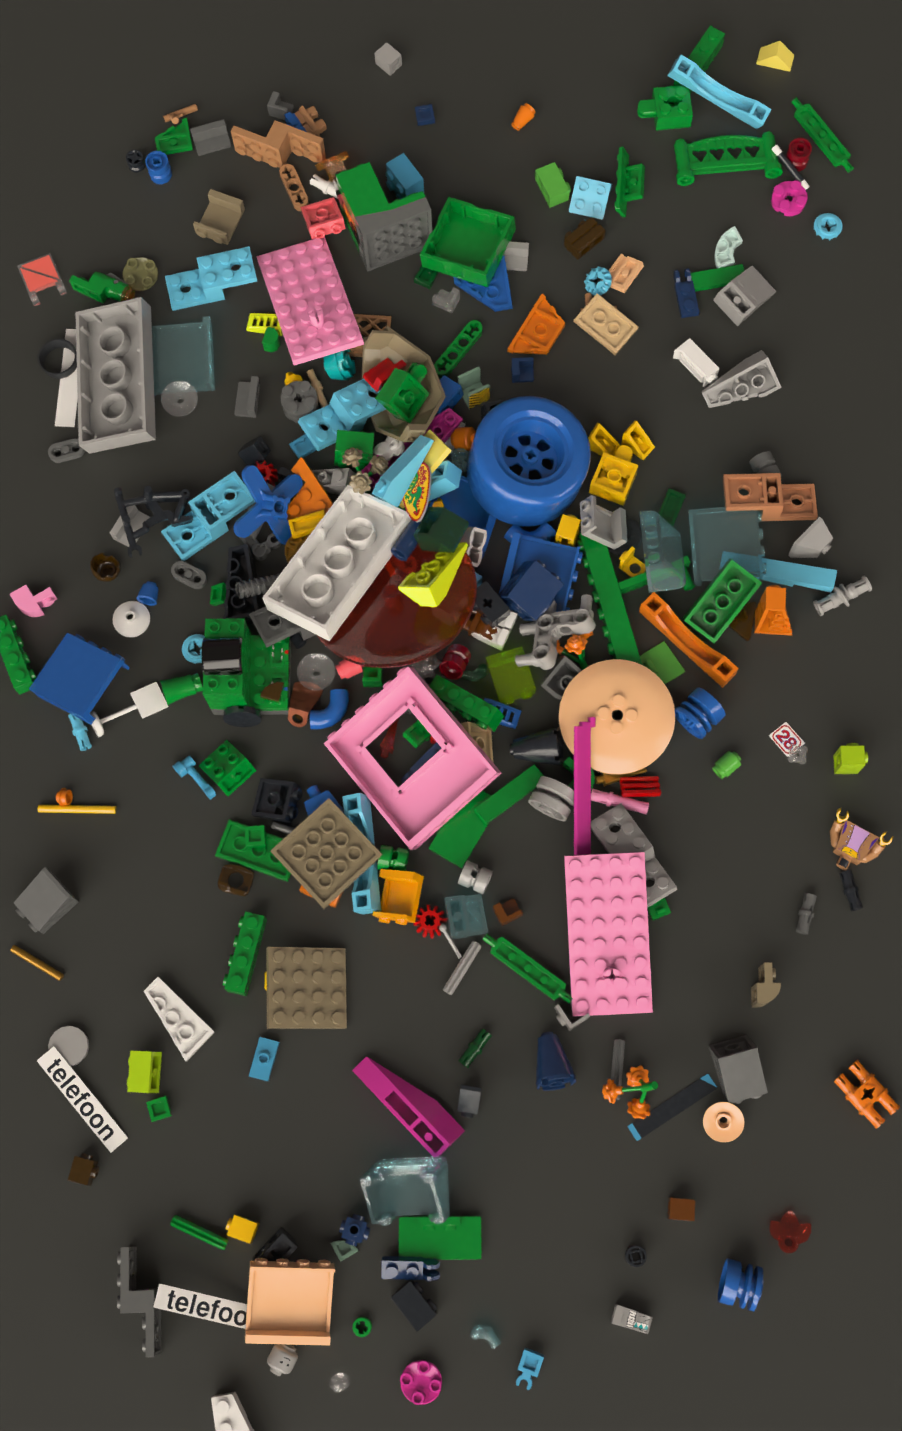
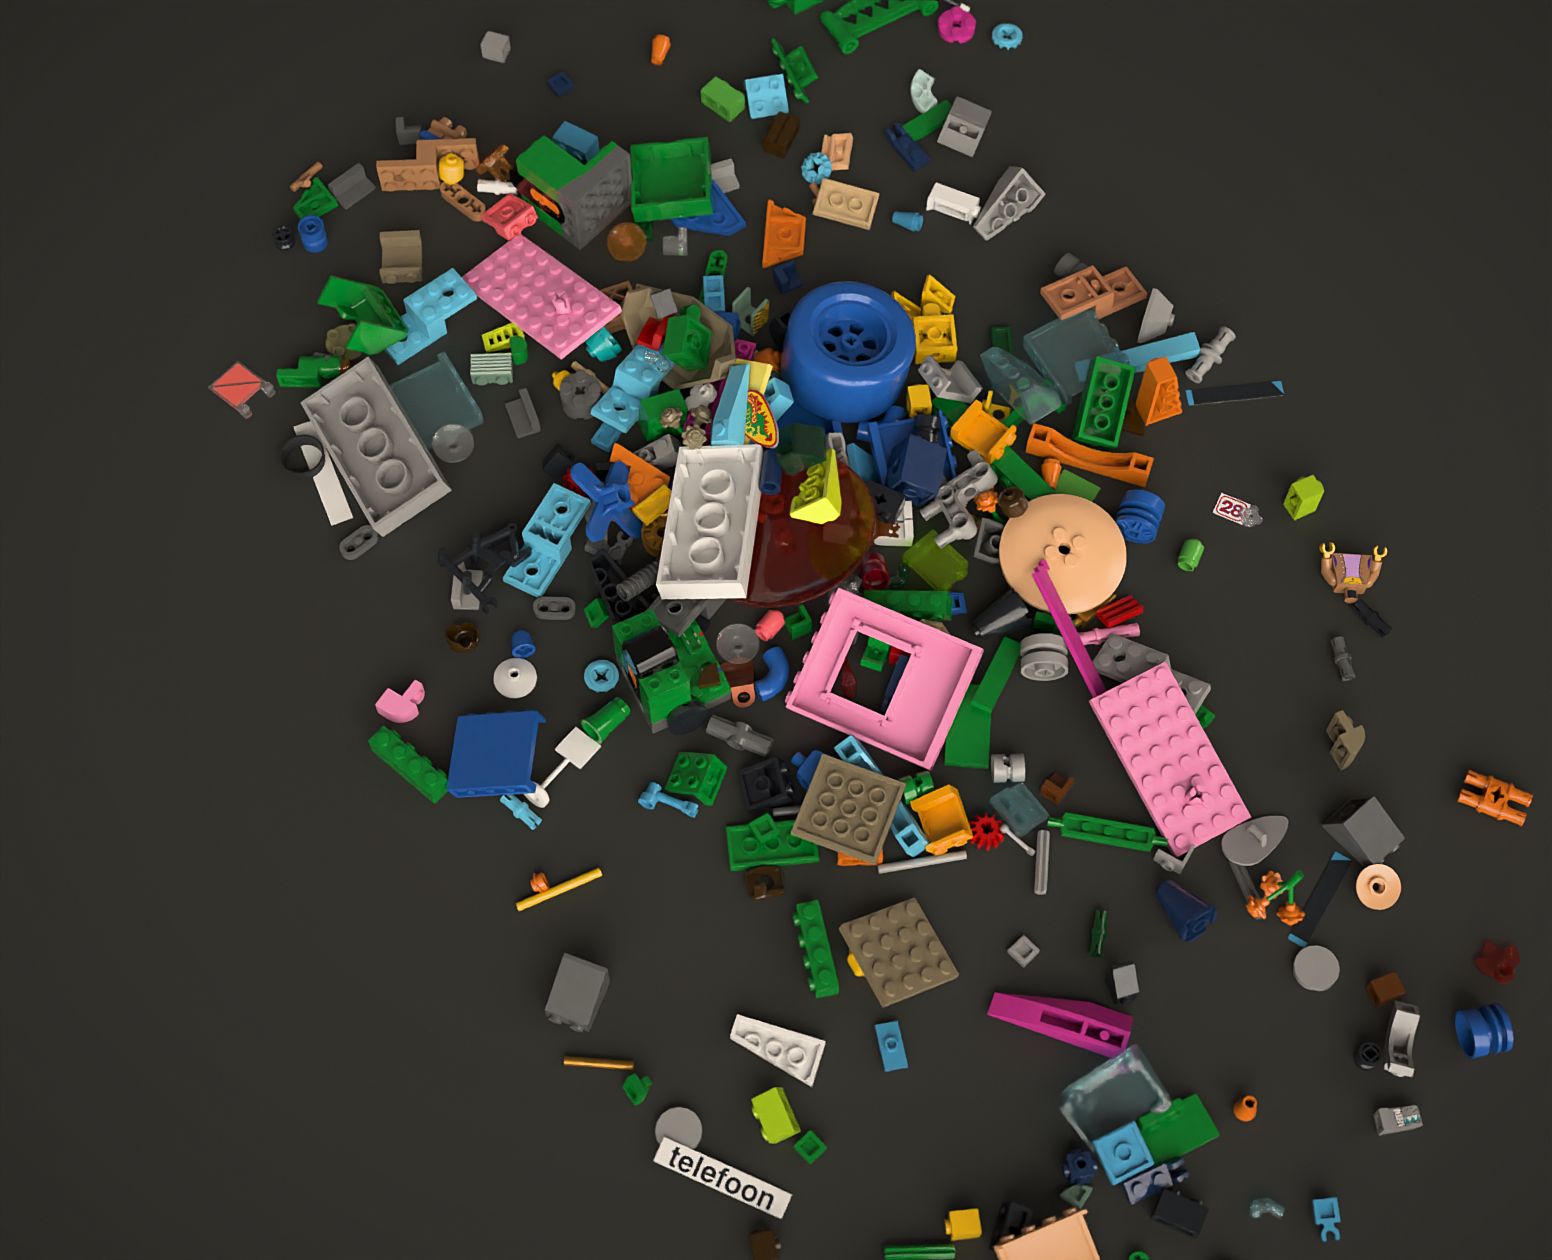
camera: 30 degrees left, 10 degrees down
(53, 998) = (636, 1088): none -> green tile
(172, 255) = (369, 306): none -> green windscreen
(242, 347) = (491, 368): none -> sand green brick
(278, 749) = (739, 735): none -> dark grey piece
(294, 156) = (451, 168): none -> yellow head
(367, 921) = (923, 861): none -> light grey bar
(371, 402) = (658, 360): none -> clear light blue arm
(394, 1236) = (1122, 1152): none -> dark azure tile
(400, 352) = (663, 302): none -> panel
(404, 282) = (626, 242): none -> clear orange tile
(408, 1033) = (1023, 951): none -> light grey tile
(452, 359) = (714, 293): none -> dark azure slope
(492, 567) = (861, 463): none -> dark azure tile
(506, 1248) = (1242, 1111): none -> orange cone
(558, 560) = (927, 427): none -> black wheel
(594, 655) = (1012, 502): none -> dark brown head
(606, 582) = (982, 433): none -> light orange panel
(635, 1162) = (1316, 968): none -> light grey tile
(644, 1032) = (1254, 840): none -> light grey shield
(648, 640) = (1050, 472): none -> orange cone
(651, 362) = (908, 220): none -> dark azure cone
(668, 1257) = (1400, 1039): none -> light grey arch
(847, 638) = (1234, 393): none -> black sticker

